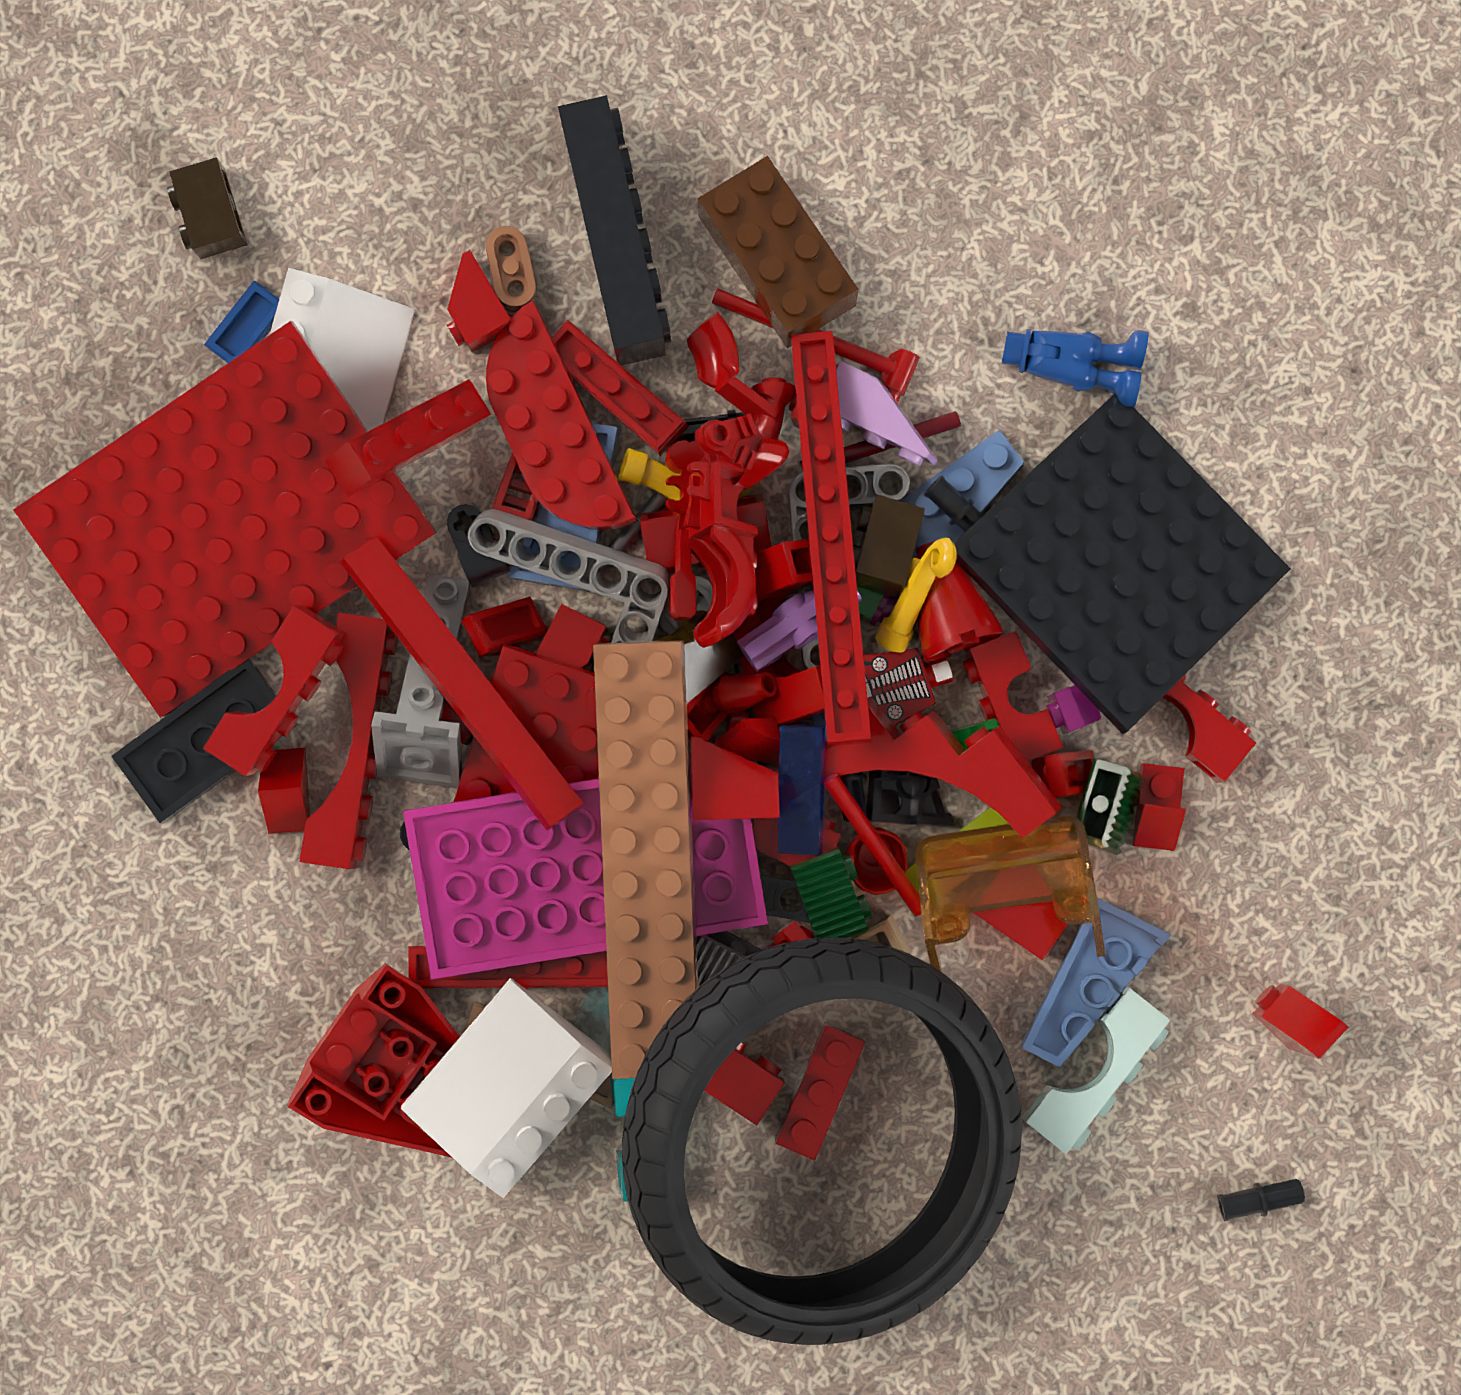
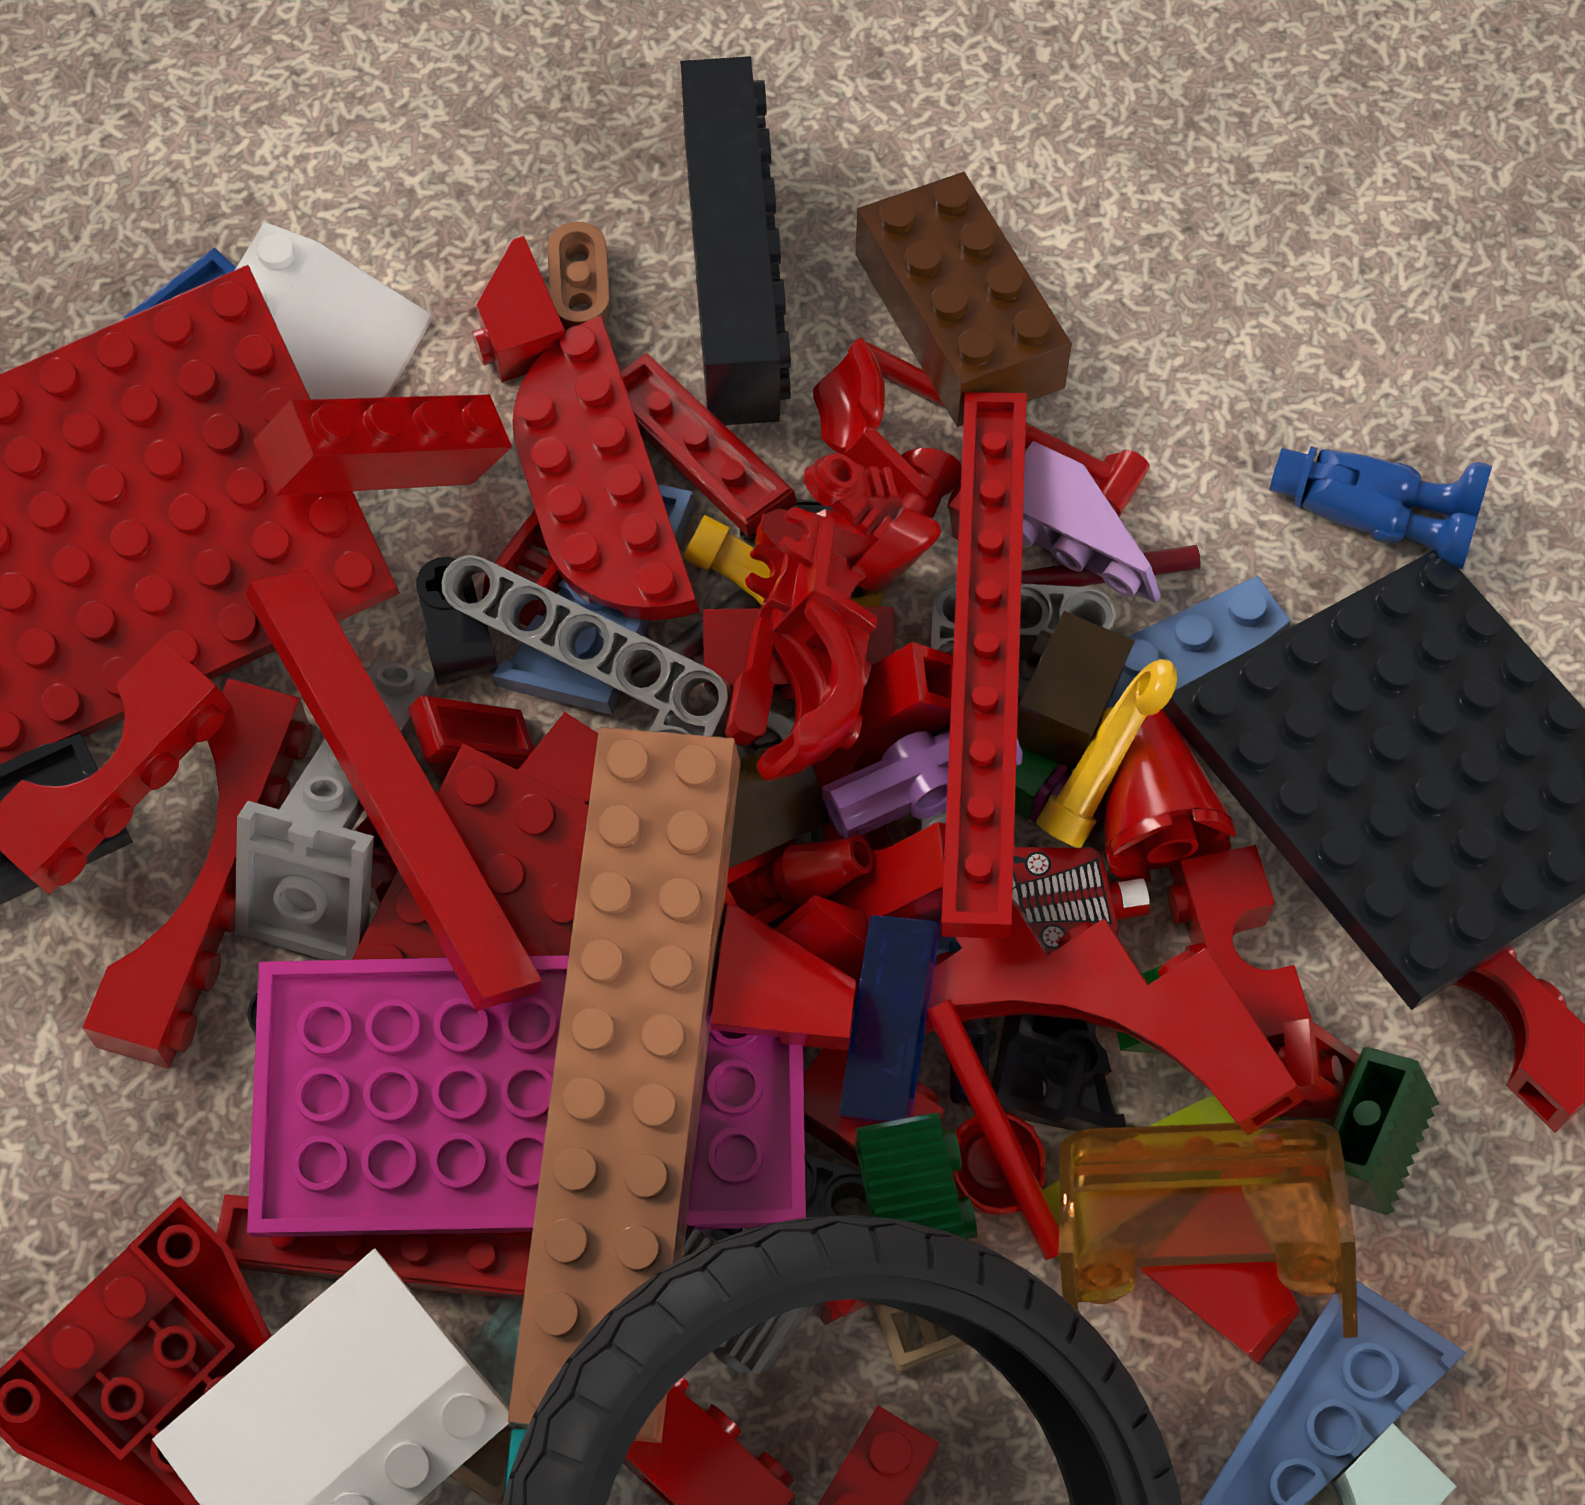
camera: 10 degrees right, 20 degrees down
(206, 208) = (170, 150): dark brown brick -> none
(285, 792) = (85, 932): red slope -> none
(953, 504) = (1167, 641): black axle -> none
(1071, 709) = (1333, 978): magenta bracket -> none
(1159, 807) = (1460, 1155): red slope -> none

